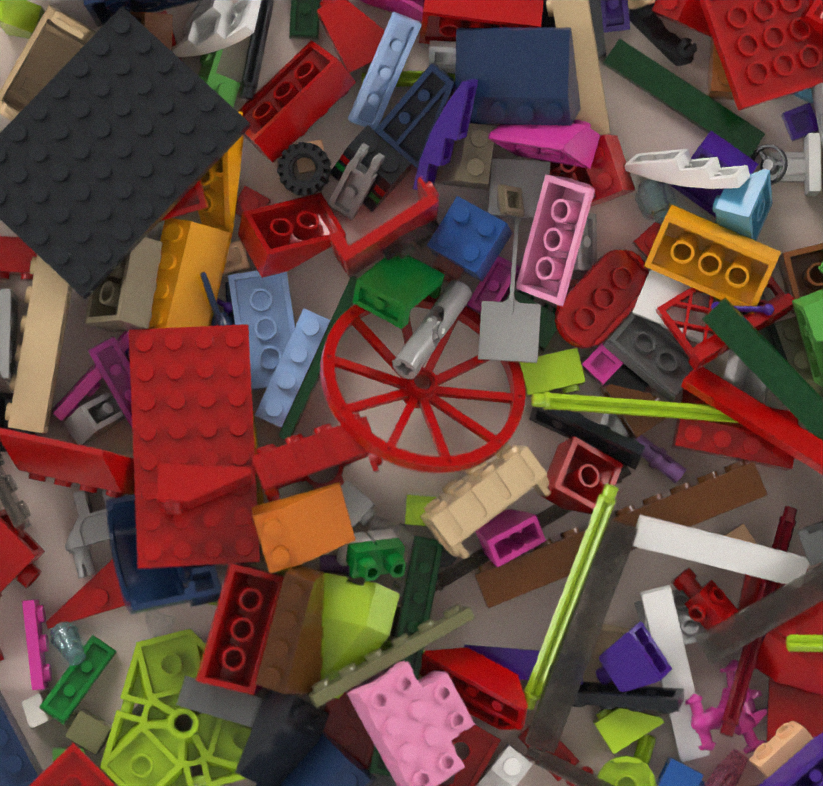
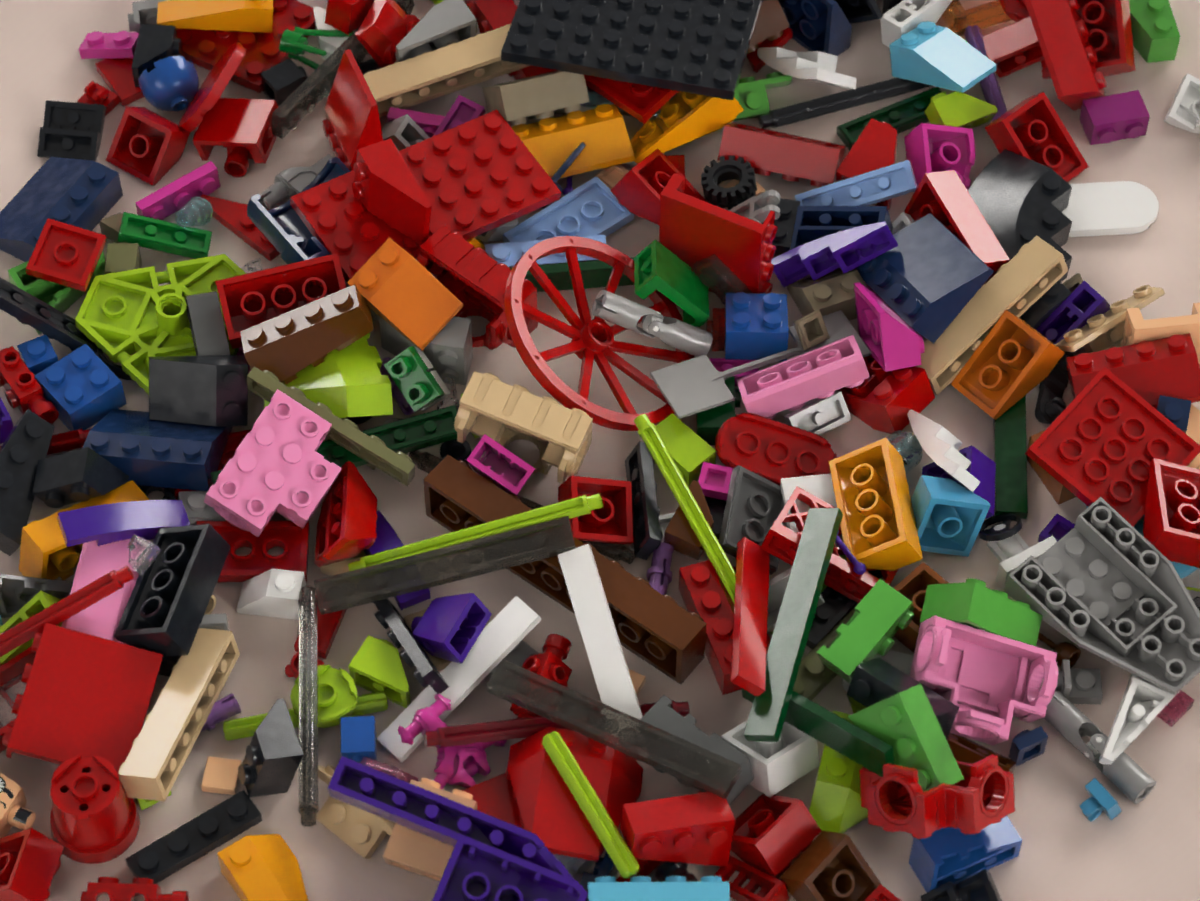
camera: 55 degrees right, 30 degrees down
(629, 61) = (1006, 365): none -> orange slope

